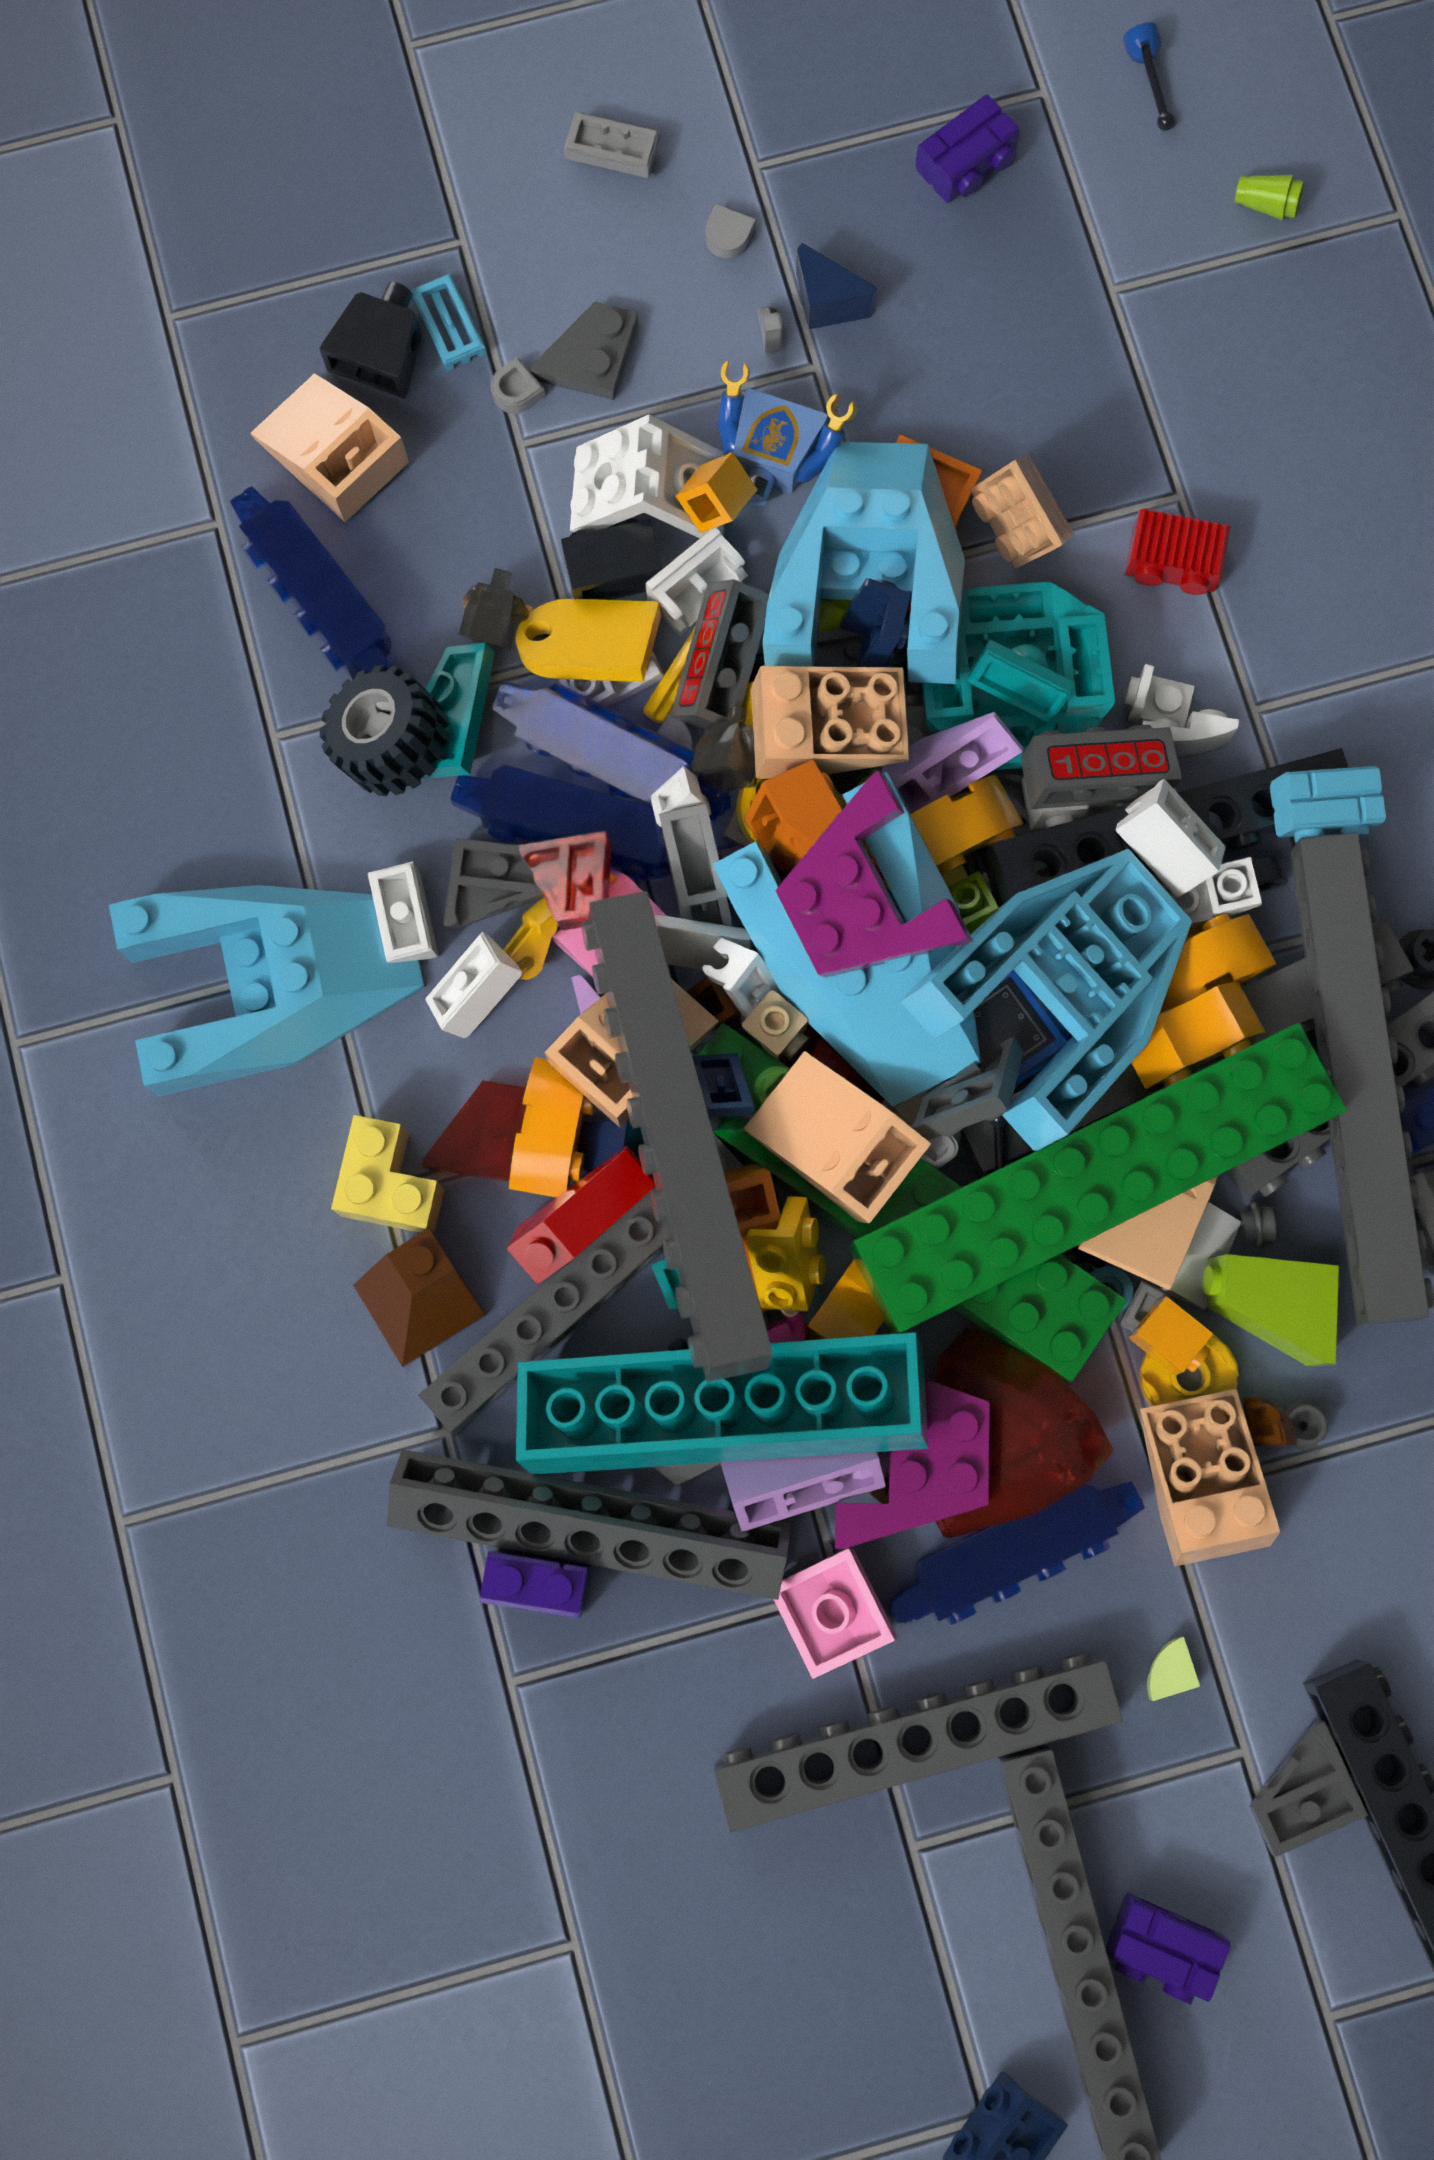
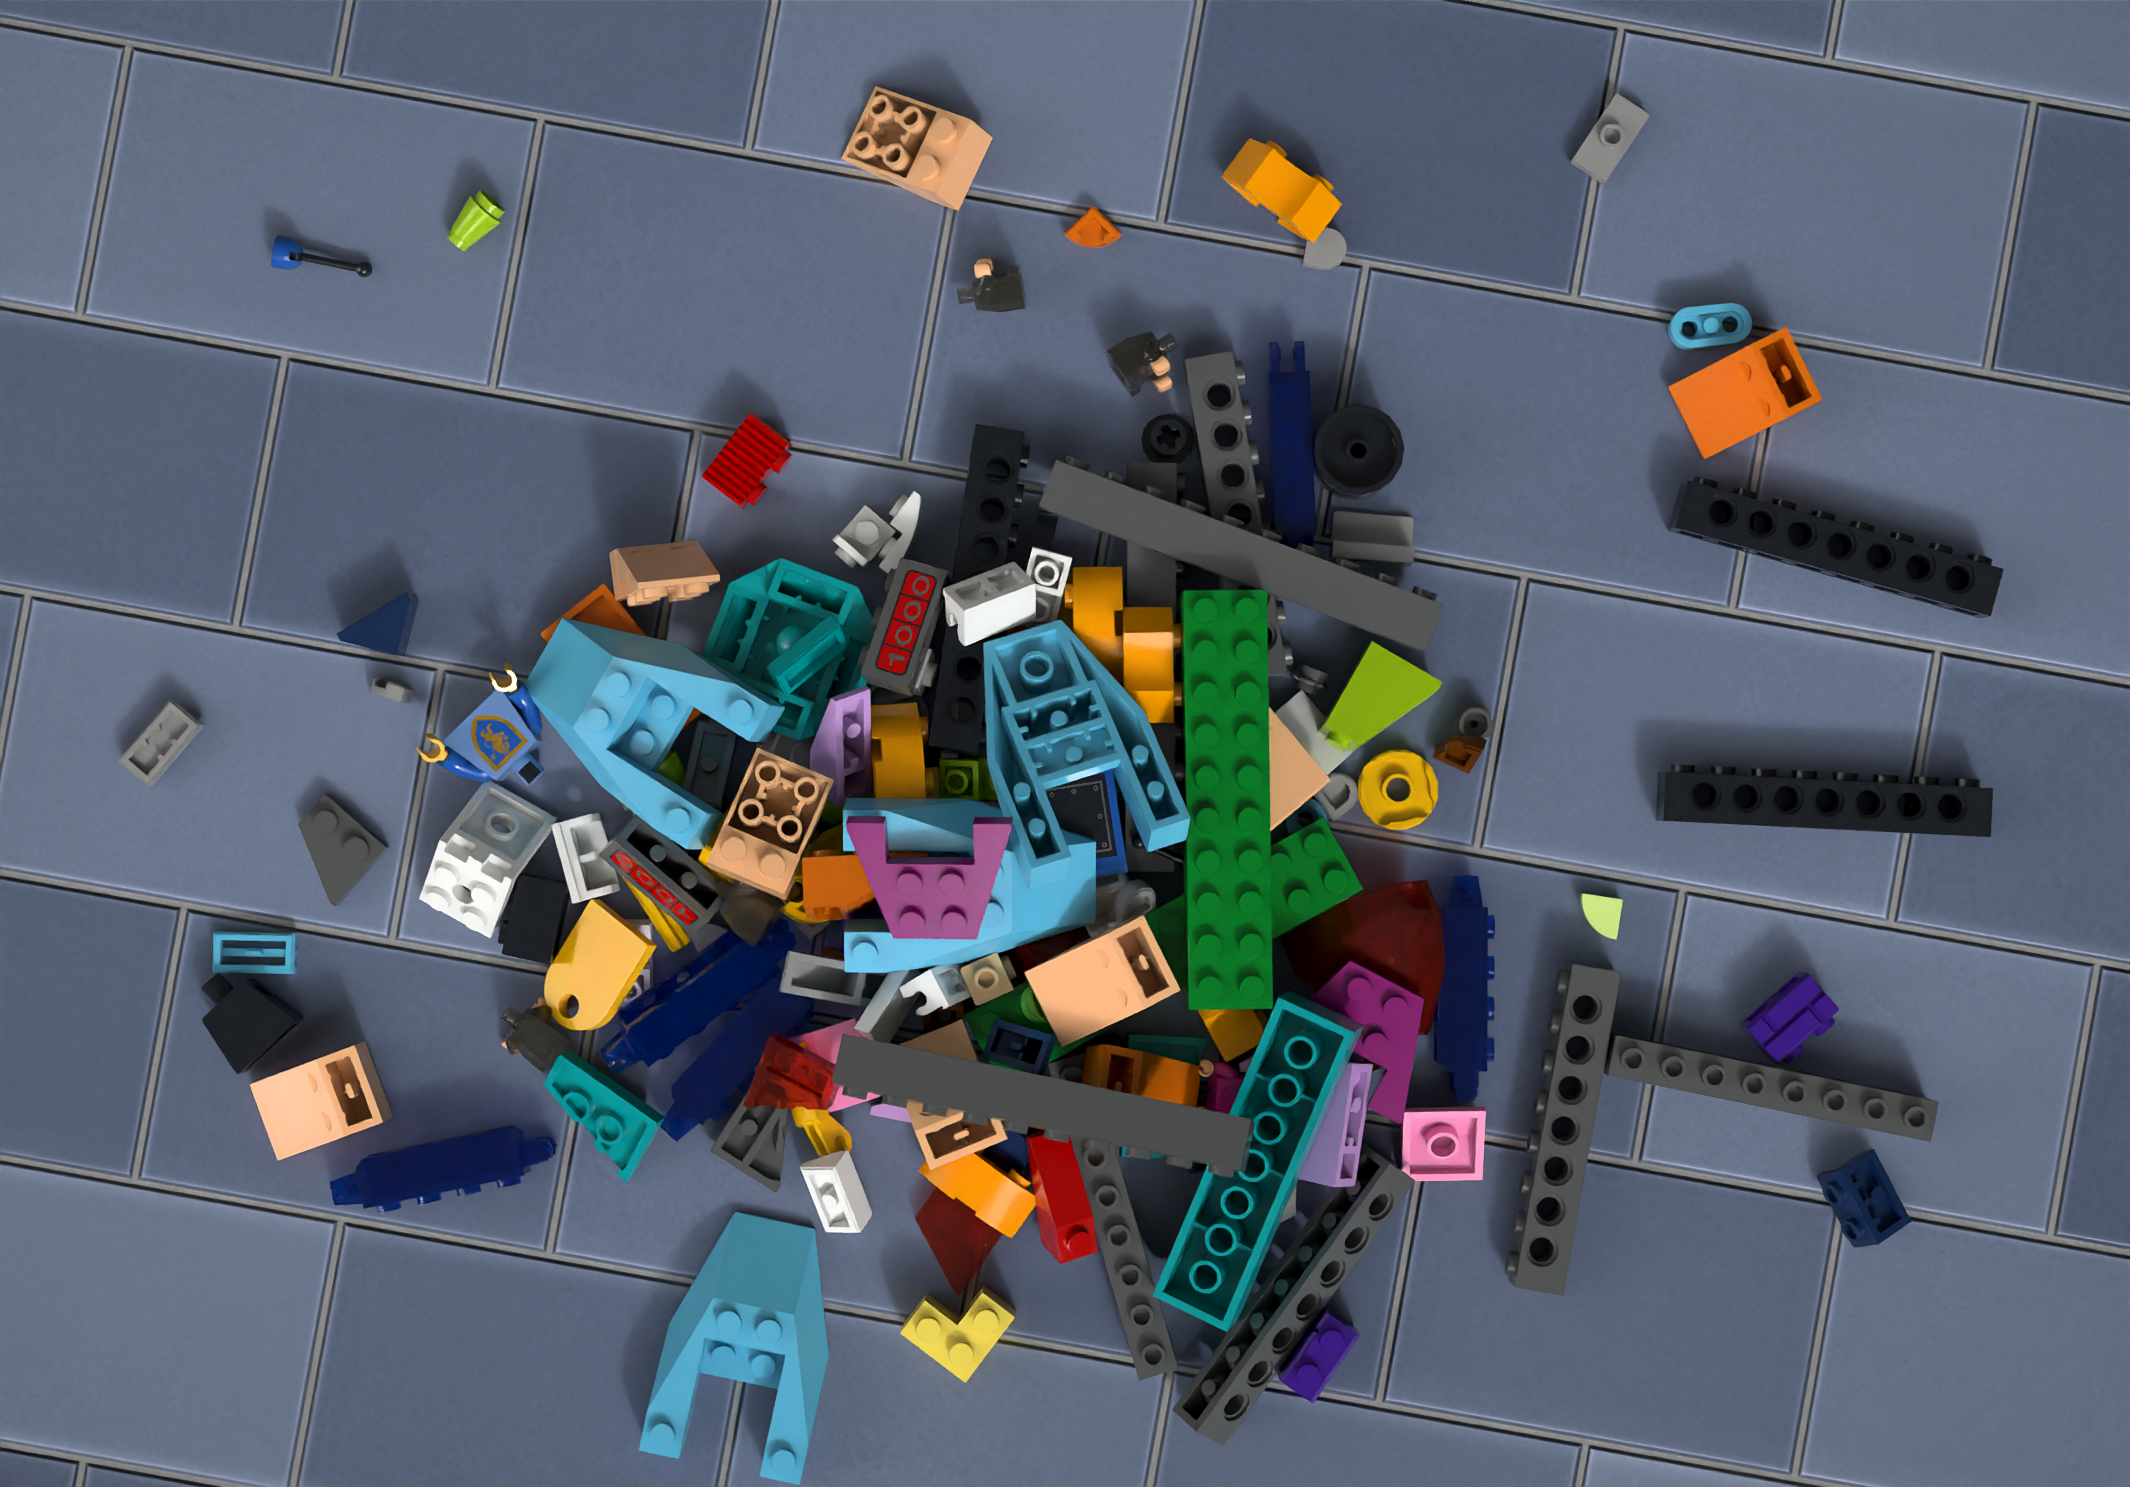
camera: 65 degrees left, 10 degrees up
(384, 730) = (597, 1169): black wheel -> none
(403, 913) = (750, 1219): white slope -> none
(418, 1297) = (1060, 1343): reddish brown slope -> none
(515, 388) = (341, 924): light grey tile -> none
(678, 792) = (768, 964): white tile -> none
(716, 492) = (524, 811): light orange brick -> none
(728, 232) = (287, 683): light grey tile -> none
(787, 1259) = (1175, 1054): yellow bracket -> none
(879, 616) = (712, 739): dark blue bracket -> none
(968, 149) = (313, 449): dark purple brick -> none
(971, 1095) = (1120, 864): dark grey wing -> none
(1172, 1337) = (1365, 793): light orange brick -> none
(1207, 1478) = (1477, 817): light nougat slope -> none
(1307, 1794) = (1734, 862): dark grey wing -> none
(1328, 802) = (1018, 465): medium azure brick -> none

